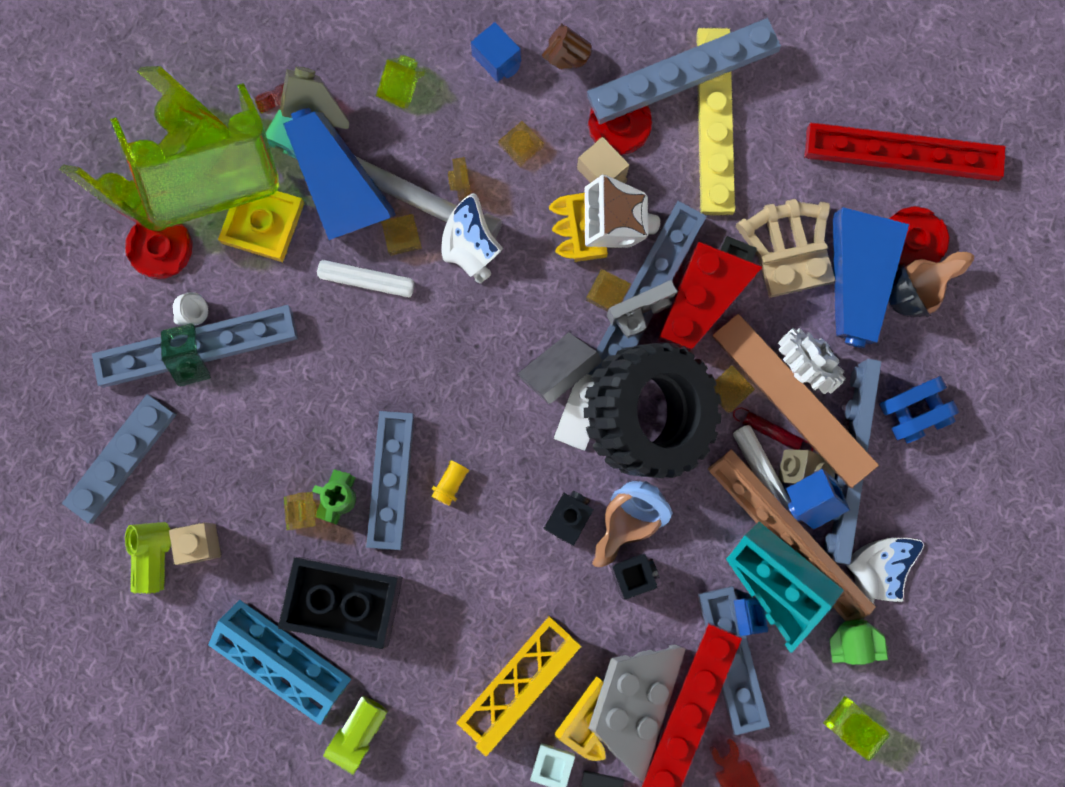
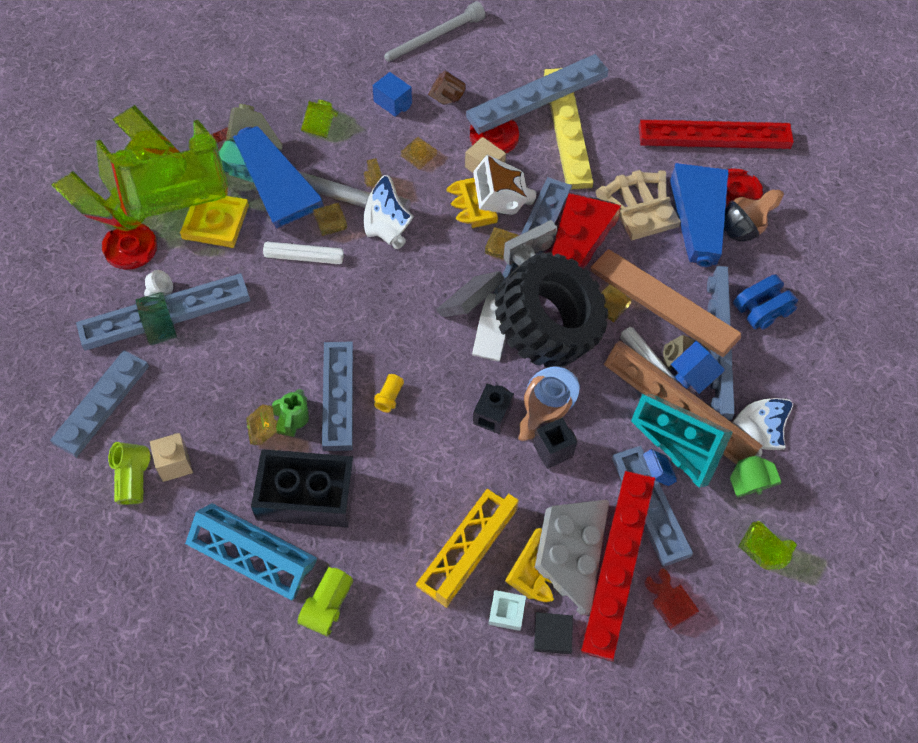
camera: 10 degrees left, 20 degrees down
(771, 430) = (650, 331): dark red piece -> none
(811, 360) = (672, 271): white gear -> none

